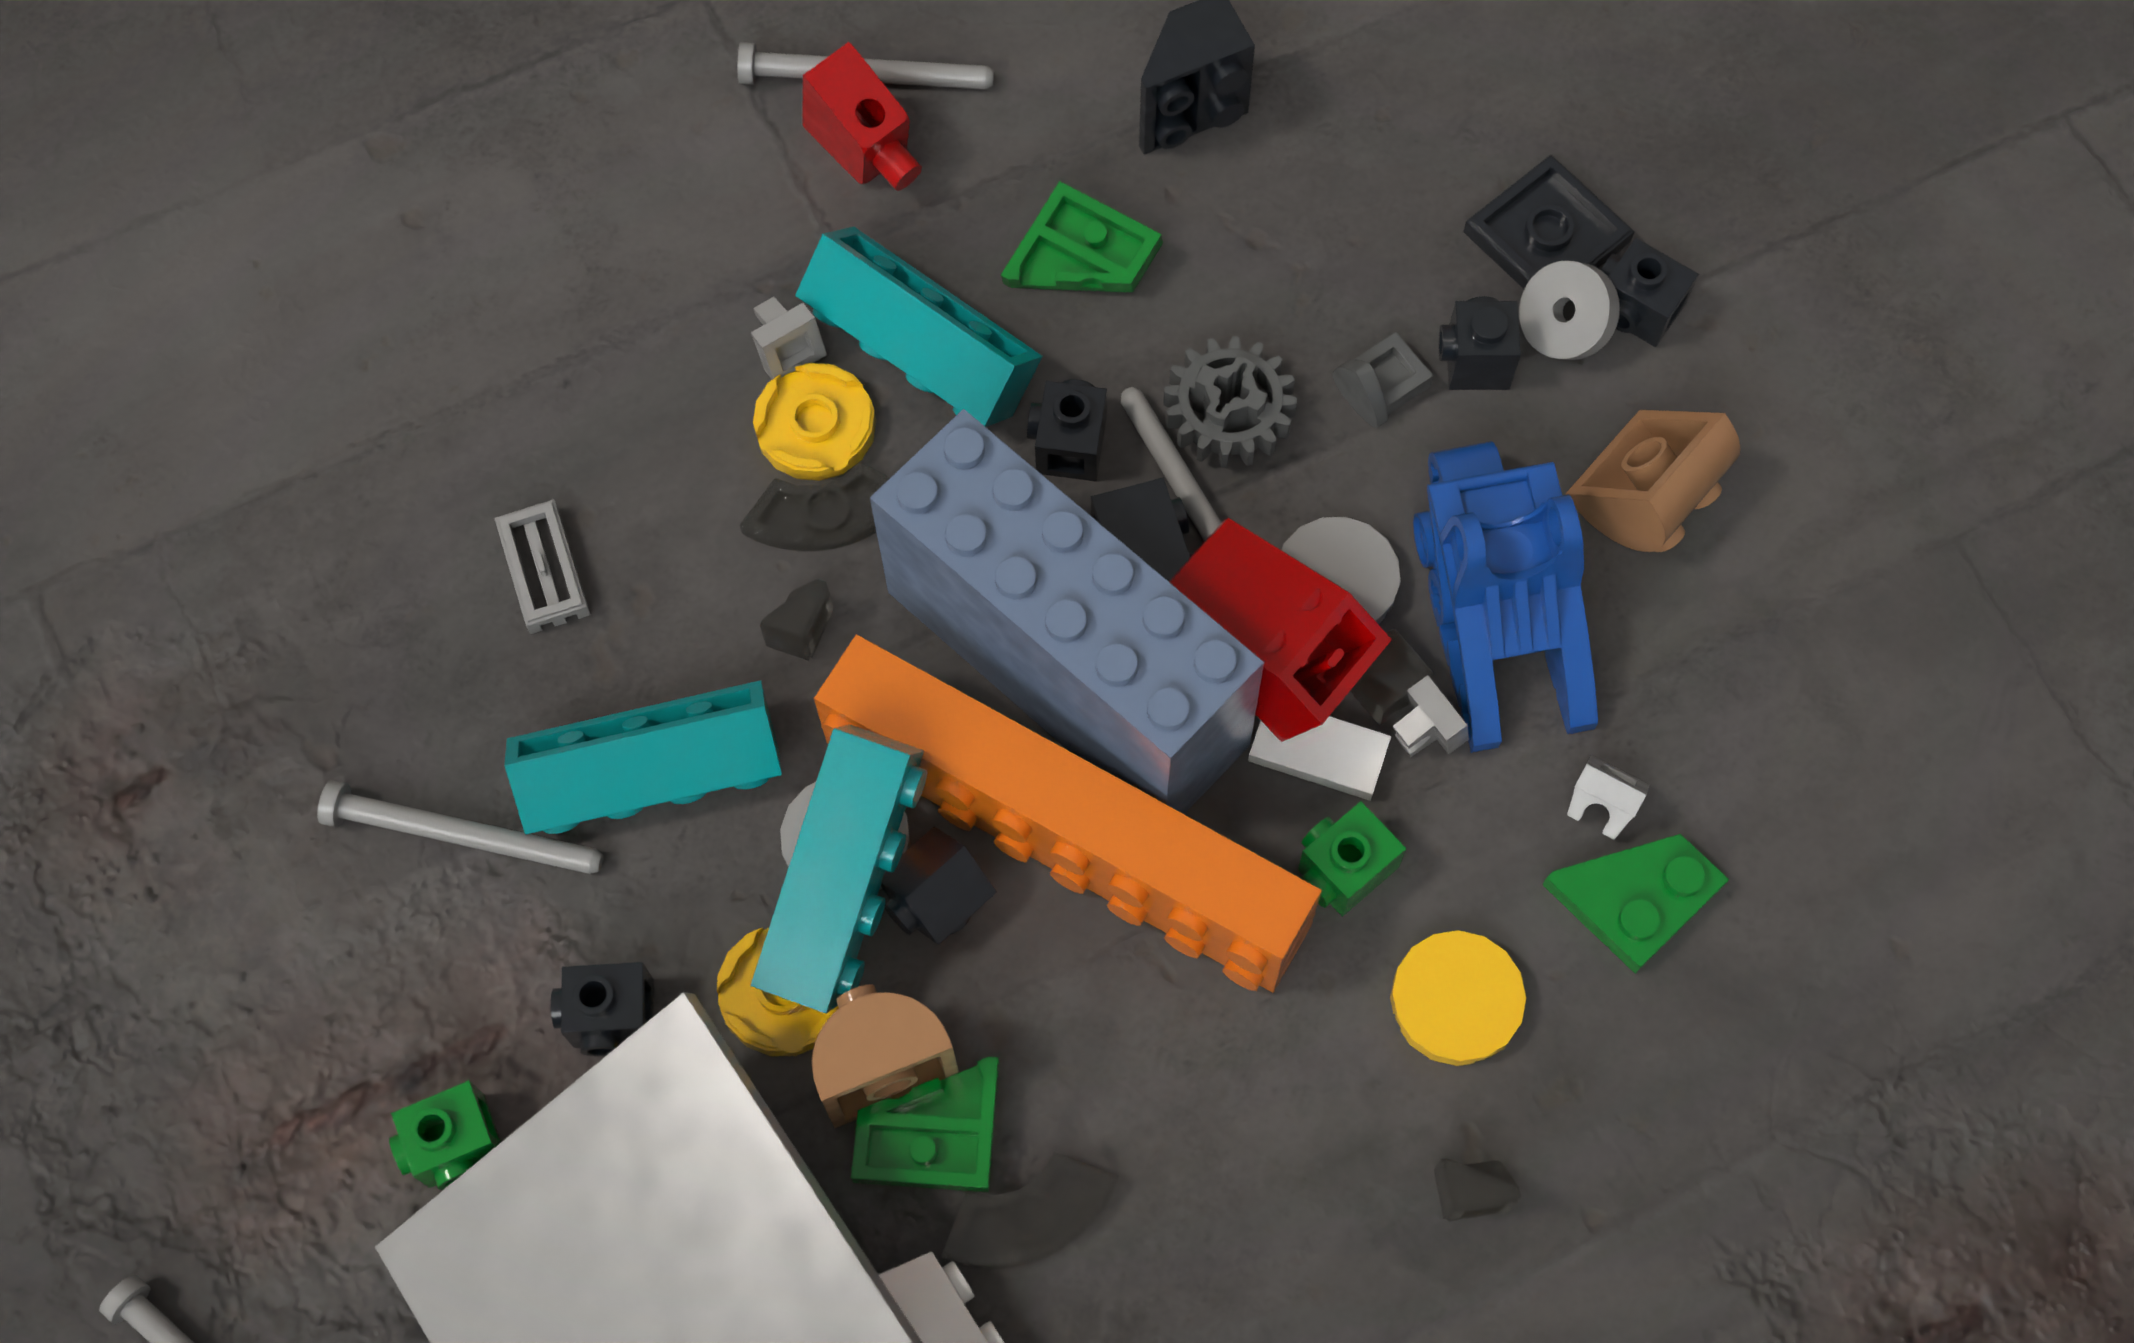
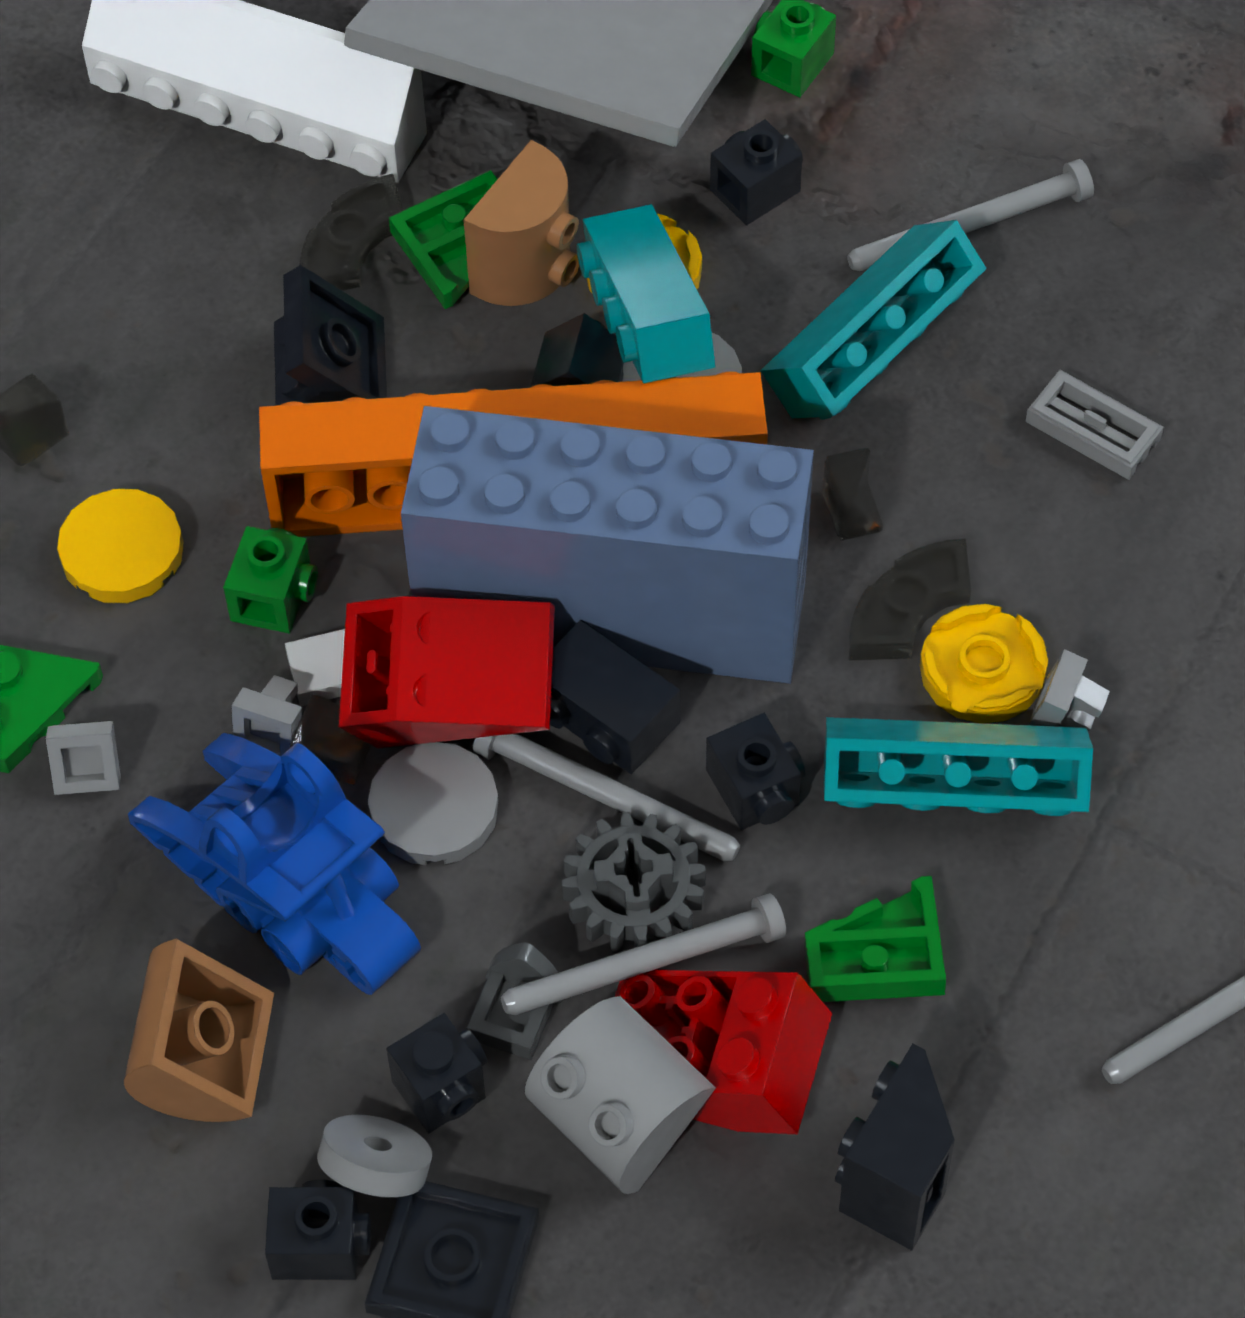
camera: 145 degrees right, 10 degrees down
(858, 119) = (1174, 913): red torso -> none
(1153, 321) = (763, 920): none -> light grey bar
(1153, 1060) = (326, 344): none -> black bracket
(1264, 252) = (745, 1034): none -> red slope
(1365, 228) = (617, 1091): none -> light grey brick

